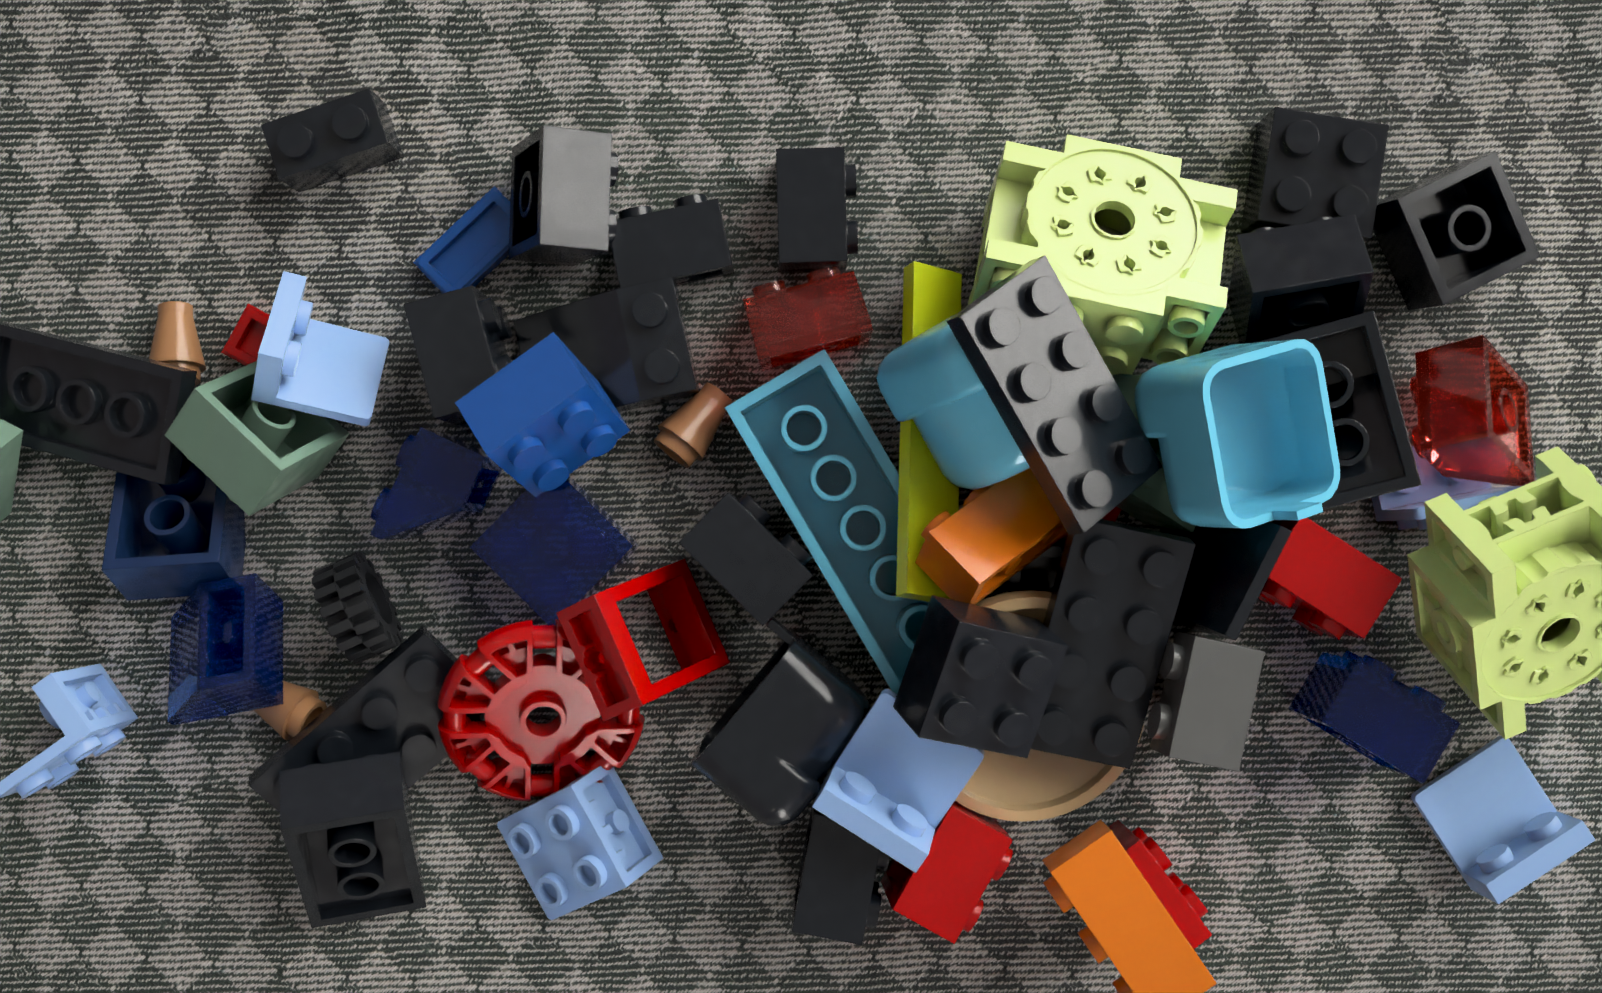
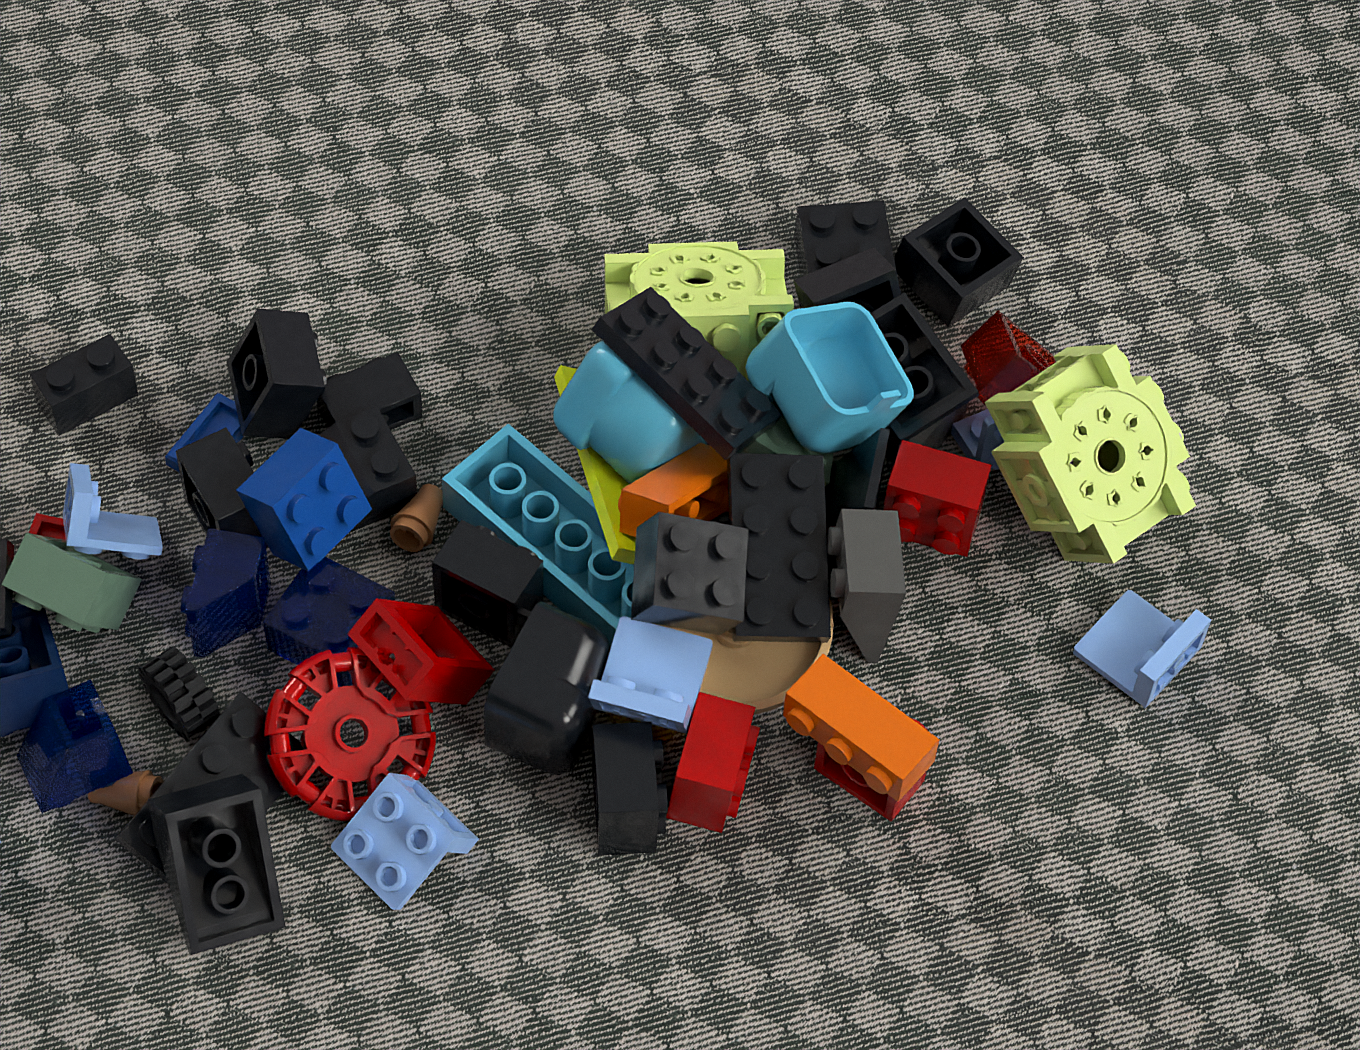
camera: 20 degrees left, 30 degrees down
(807, 318) = (472, 422): clear red slope -> none
(813, 208) = (473, 353): black brick -> none
(1374, 715) = (1012, 583): clear blue brick -> none

